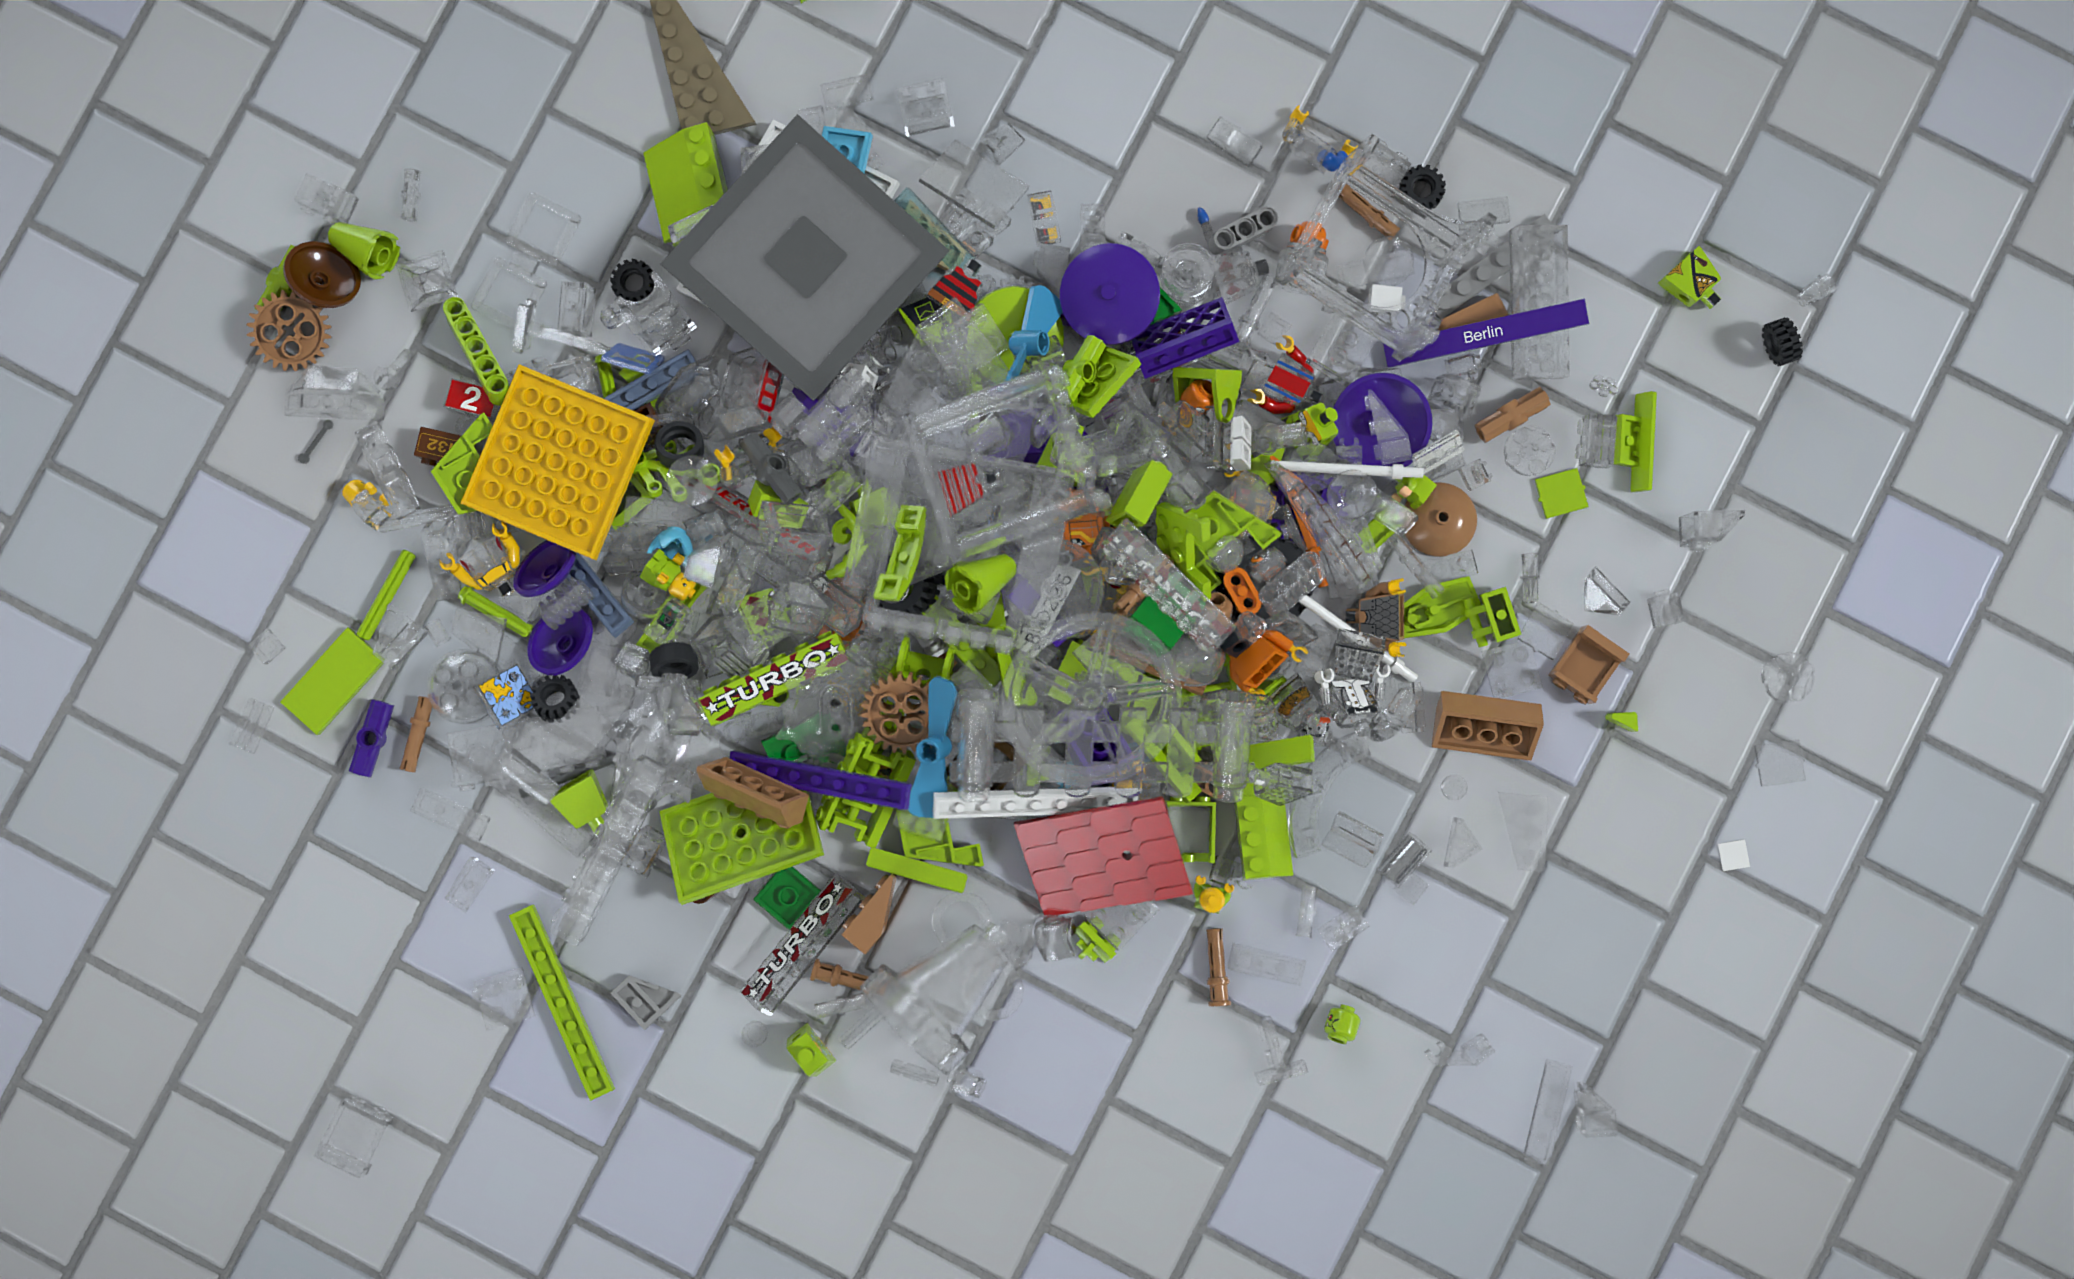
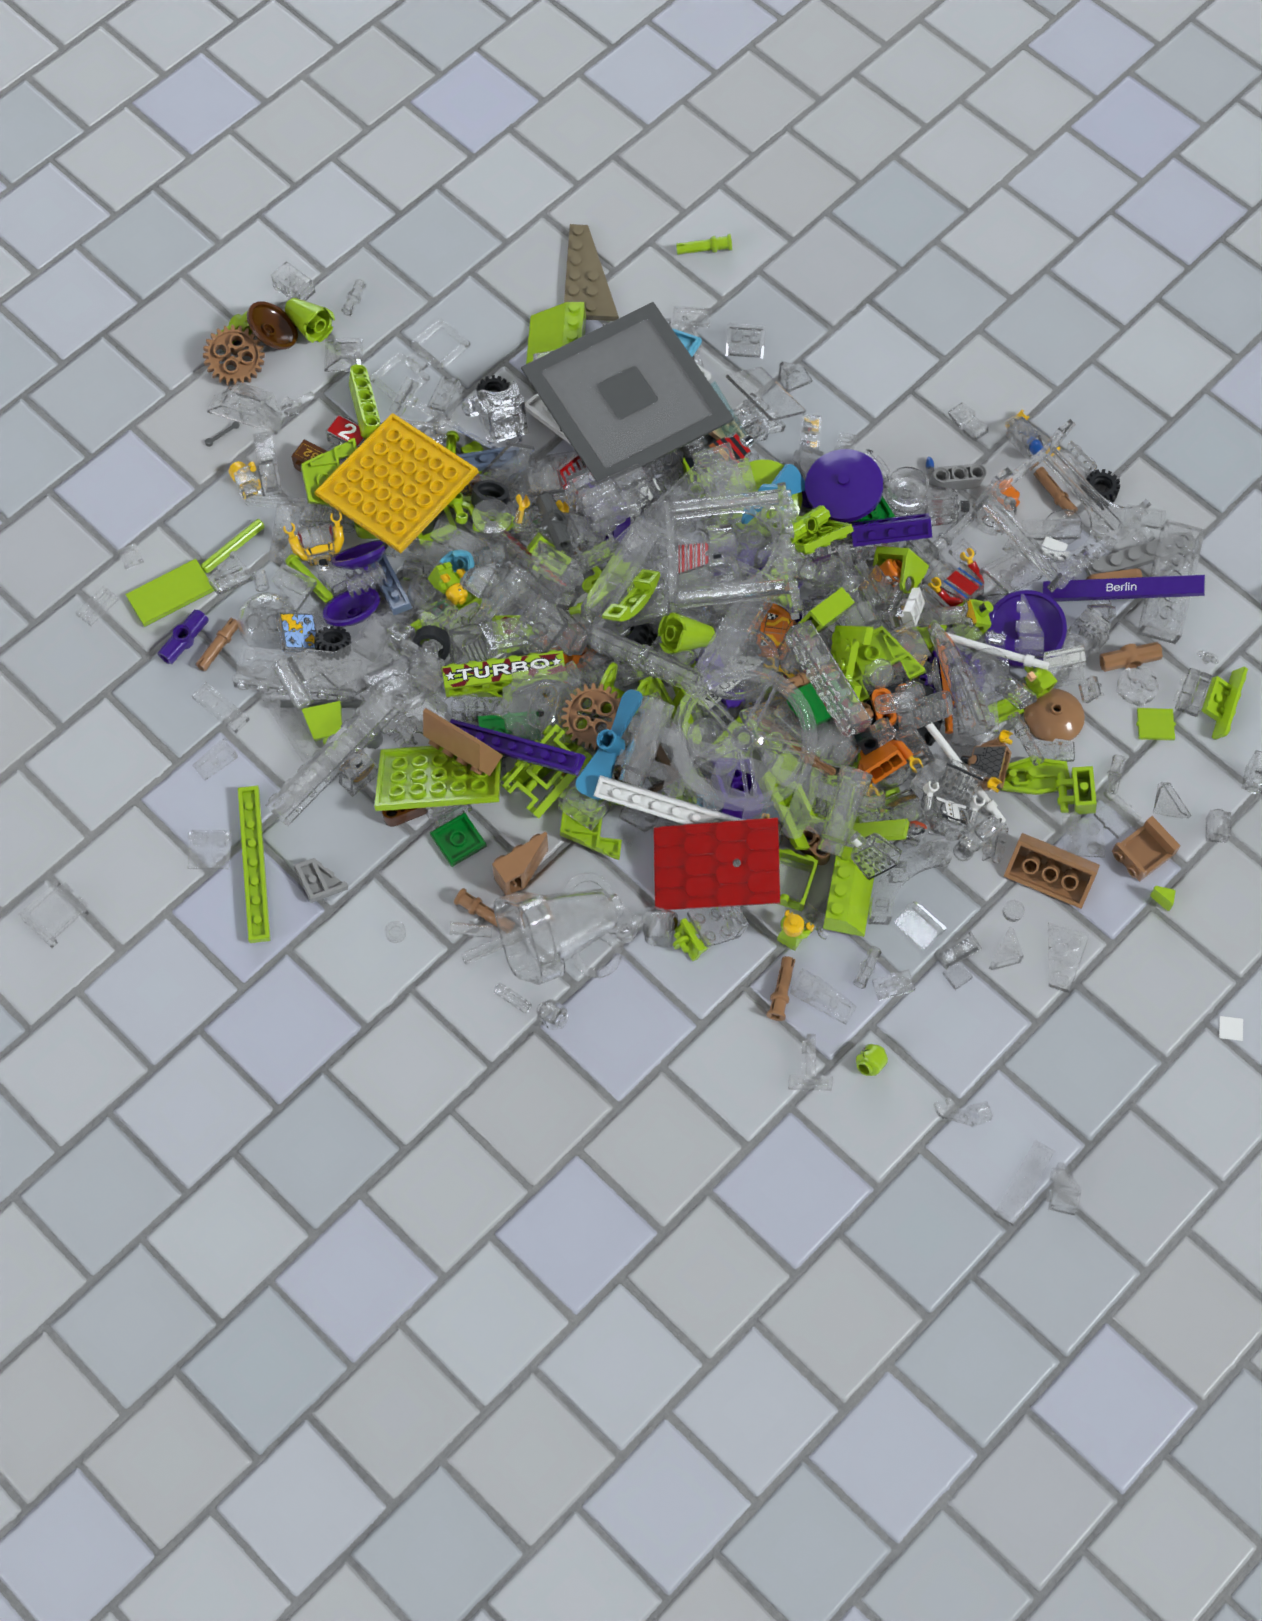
camera: 10 degrees right, 20 degrees down
(802, 944) = (455, 873): clear brick -> none
(809, 1051) = (435, 952): lime torso -> none
(916, 870) = (567, 846): lime slope -> none
(1261, 588) = (895, 702): none -> clear piece

